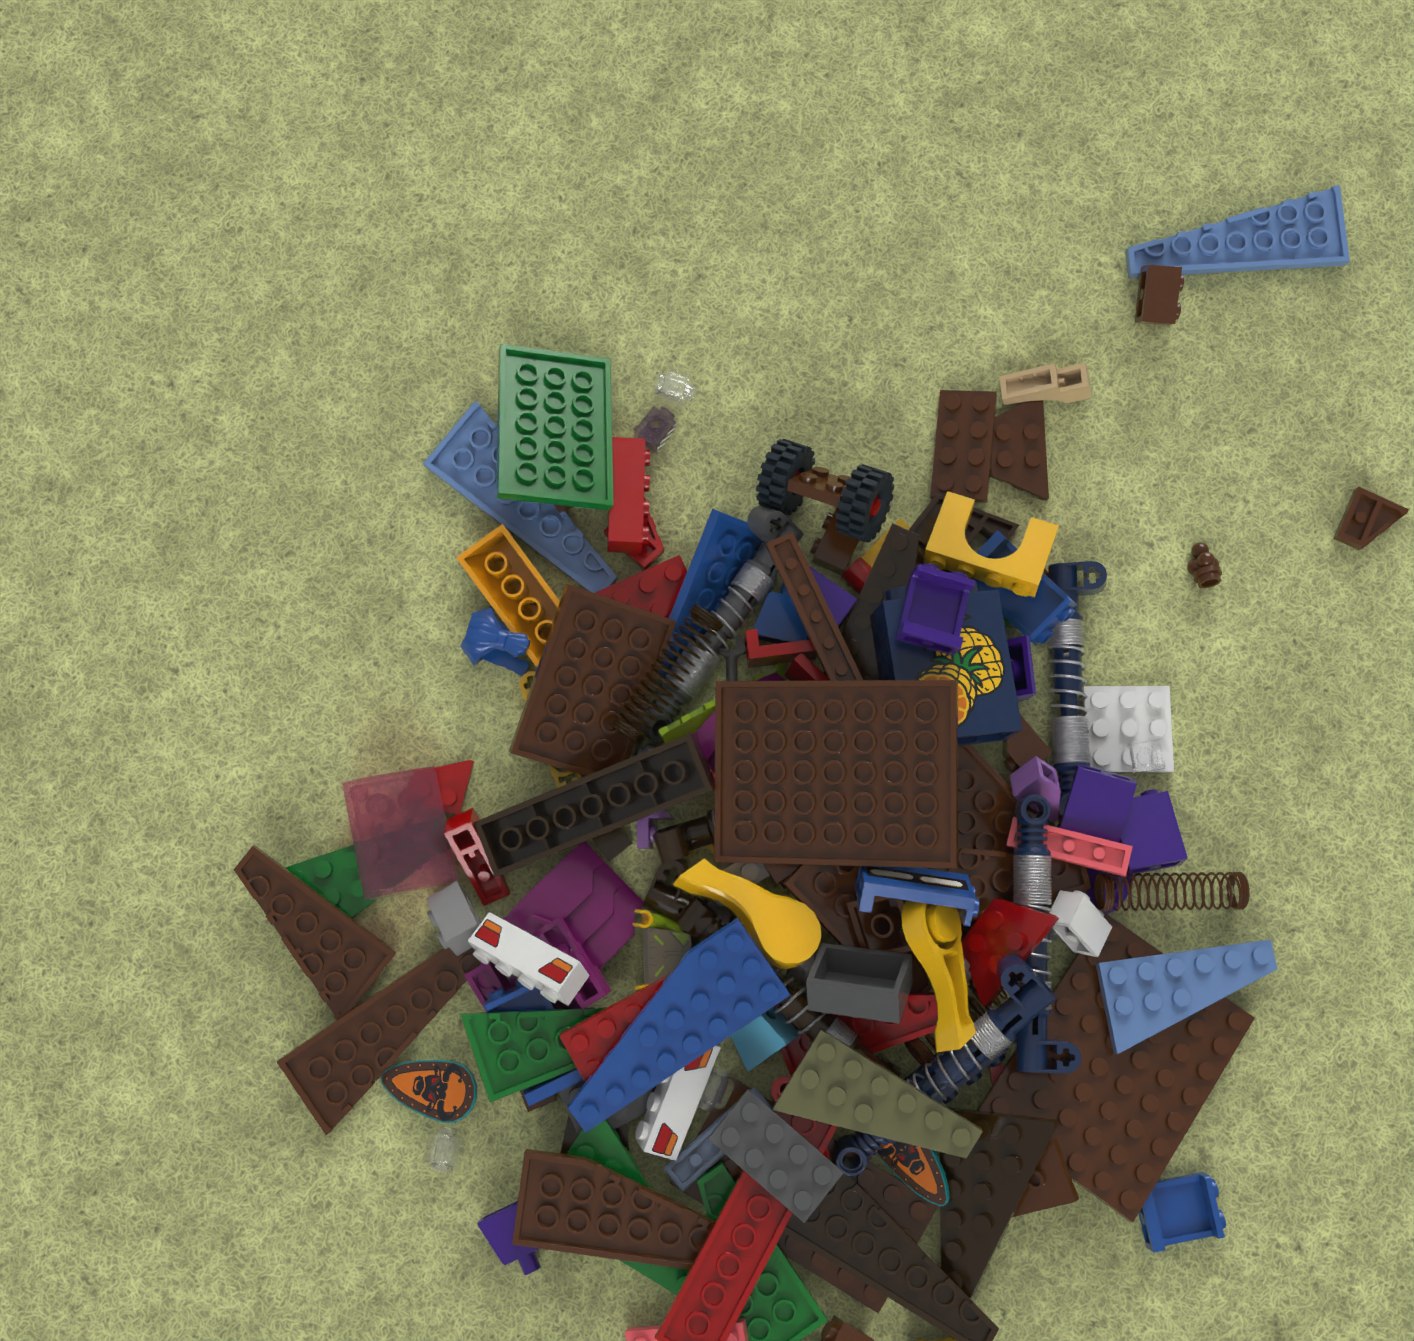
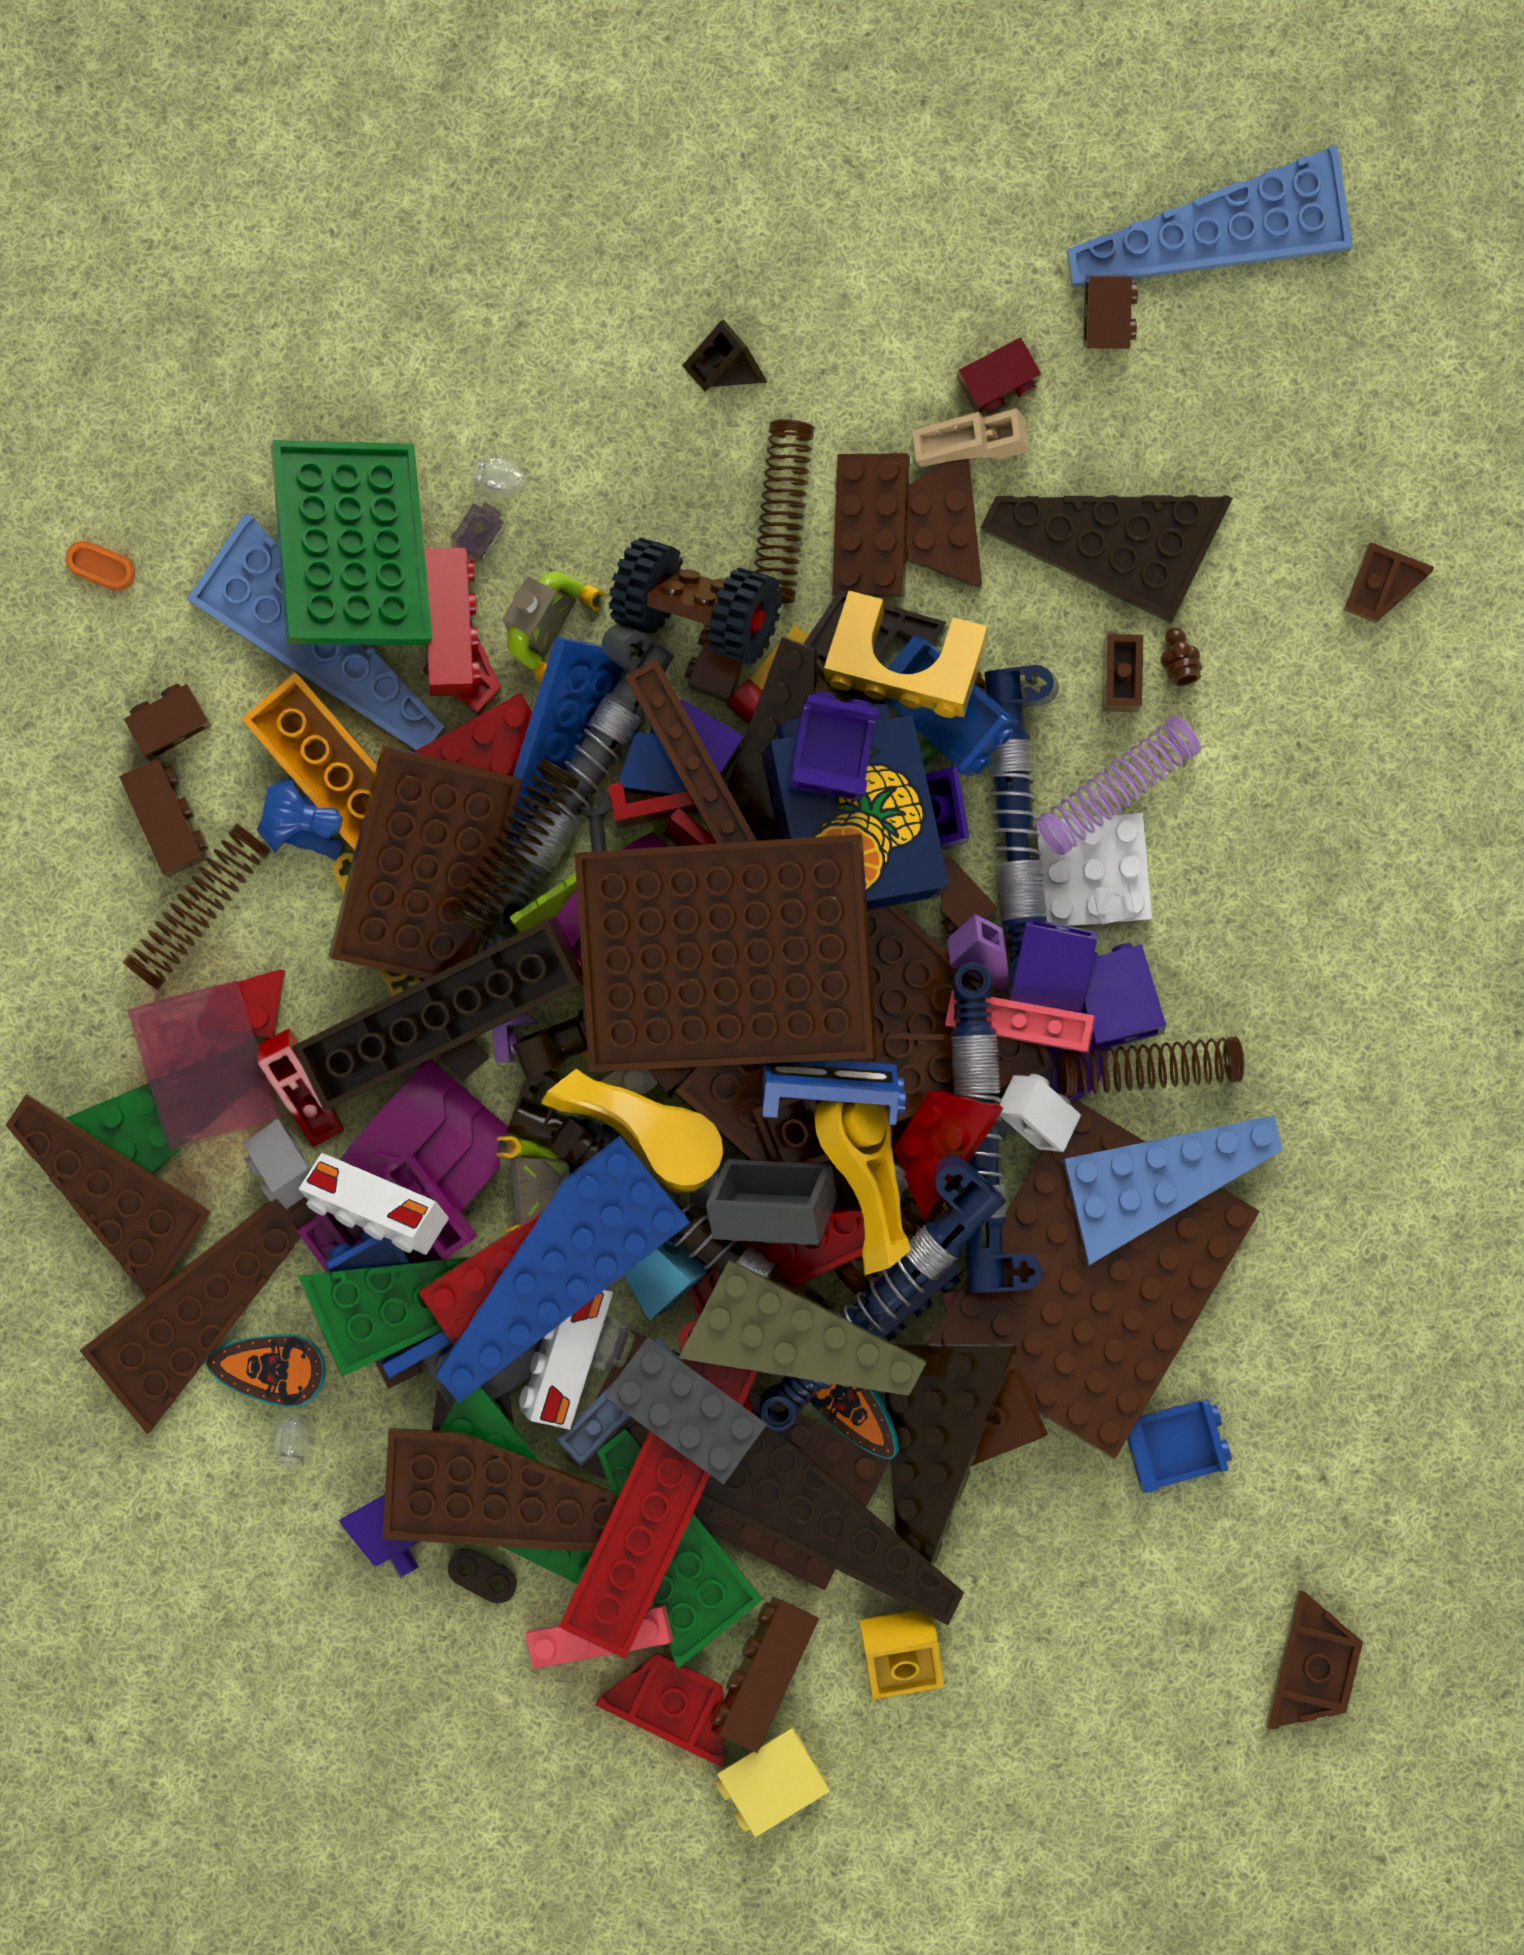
camera: 10 degrees left, 5 degrees up
(357, 751) = (236, 833): none -> reddish brown piece
(358, 434) = (100, 565): none -> orange tile
(389, 632) = (164, 817): none -> reddish brown brick
(398, 557) = (167, 720): none -> reddish brown brick
(595, 1275) = (482, 1575): none -> dark brown plate
(699, 493) = (539, 614): none -> torso
(856, 312) = (723, 361): none -> dark brown slope
(914, 375) = (806, 433): none -> reddish brown piece
(1070, 339) = (999, 376): none -> dark red brick
(1109, 692) = (1052, 821): none -> lavender piece
(1159, 573) = (1122, 672): none -> reddish brown brick
(1163, 476) = (1123, 545): none -> dark brown wing

